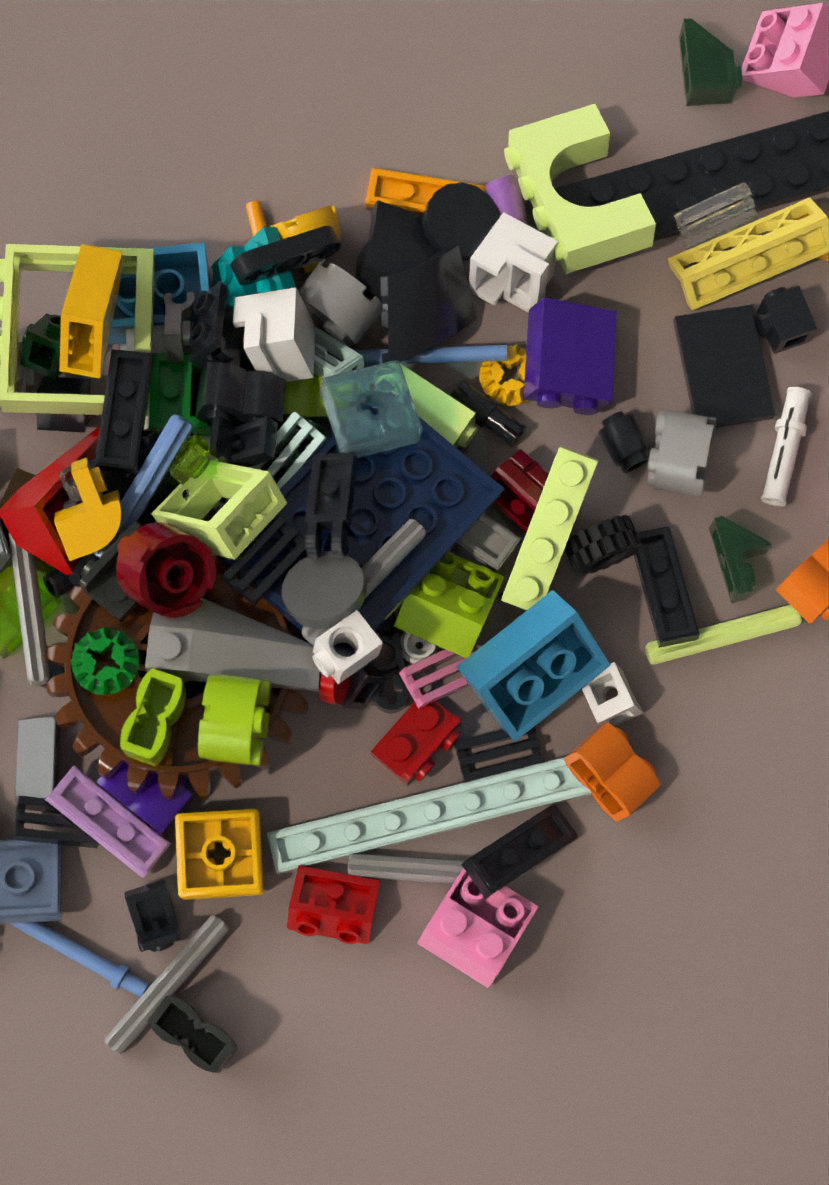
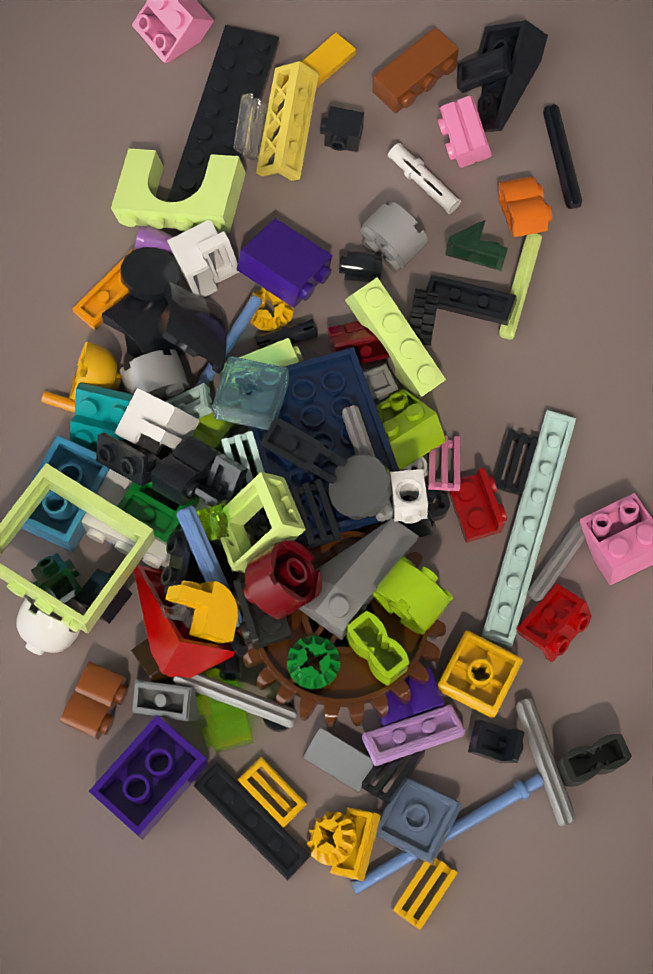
camera: 55 degrees left, 5 degrees down
(89, 311) = (66, 524): yellow slope -> none
(124, 411) = (150, 545): black tile -> none
(177, 329) = (110, 483): flat silver plate -> none
(285, 255) = (108, 384): black beam -> none
(331, 691) = (420, 529): red tile -> none
(519, 850) = (591, 483): black tile -> none
(534, 665) = (477, 401): dark azure brick -> none
(612, 771) = (572, 399): orange brick -> none
(618, 708) = (530, 365): white brick -> none
(707, 67) = (146, 74): clear green slope -> none
(724, 366) = (347, 182): black tile -> none

